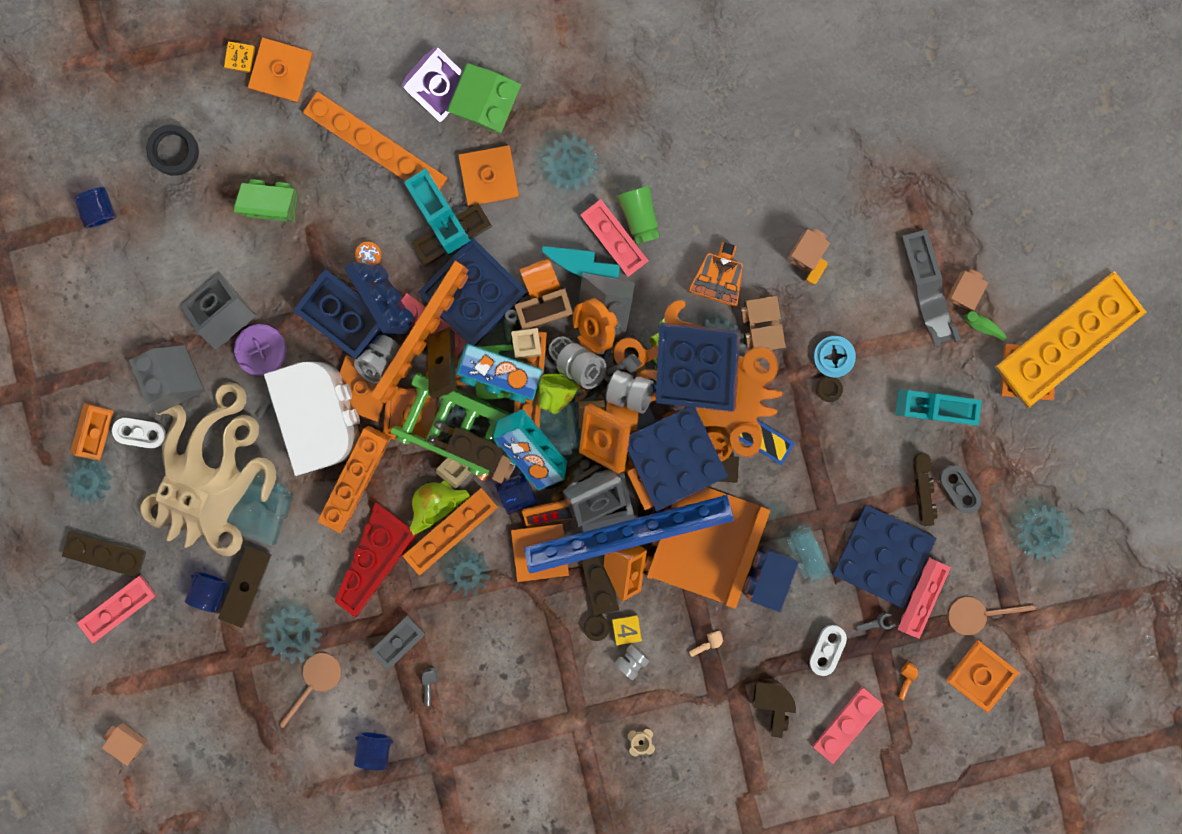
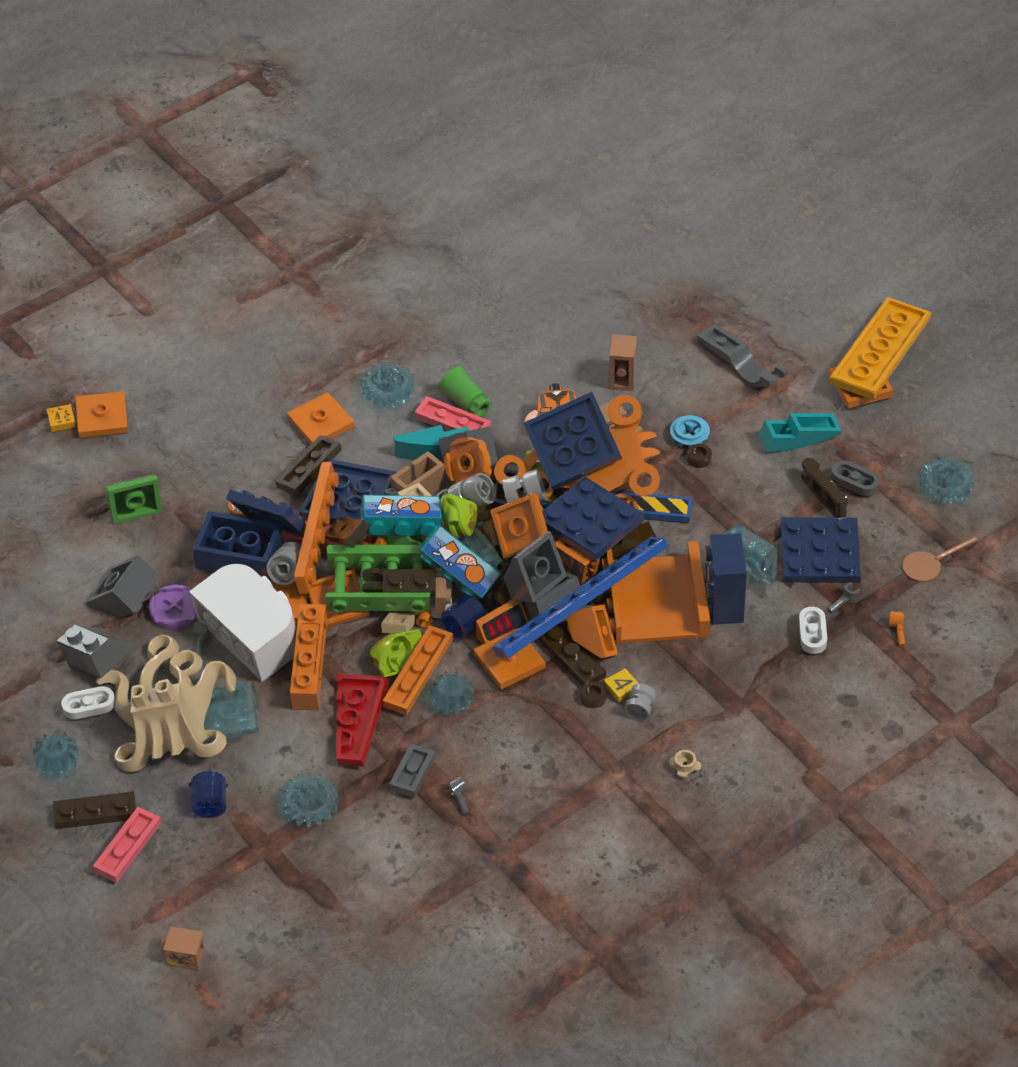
camera: 25 degrees left, 40 degrees down
(91, 432) = (40, 719): orange slope -> none
(152, 153) = (25, 481): black tyre -> none
(239, 601) = (244, 781): dark brown tile -> none
(321, 674) = (349, 828): nougat piece -> none
(368, 140) = (210, 434): orange plate -> none
(372, 751) = (432, 859): clear blue piece -> none
(433, 82) = (244, 371): slope -> none
(437, 211) = (289, 447): teal slope -> none
(483, 98) = (290, 364): bright green slope -> none
(540, 278) = (400, 458): orange piece -> none
(630, 363) = (511, 470): dark grey hand -> none
(715, 640) = (706, 663): light nougat hand -> none
(774, 697) = (787, 680): dark brown brick -> none
(813, 277) = (639, 380): light orange tile -> none
(847, 725) = (866, 681): coral plate -> none
(924, 598) = (873, 561): coral plate -> none
(968, 290) = (774, 348): nougat brick -> none
(982, 676) = (962, 598): orange plate -> none
(983, 325) = (800, 369): bright green bar -> none

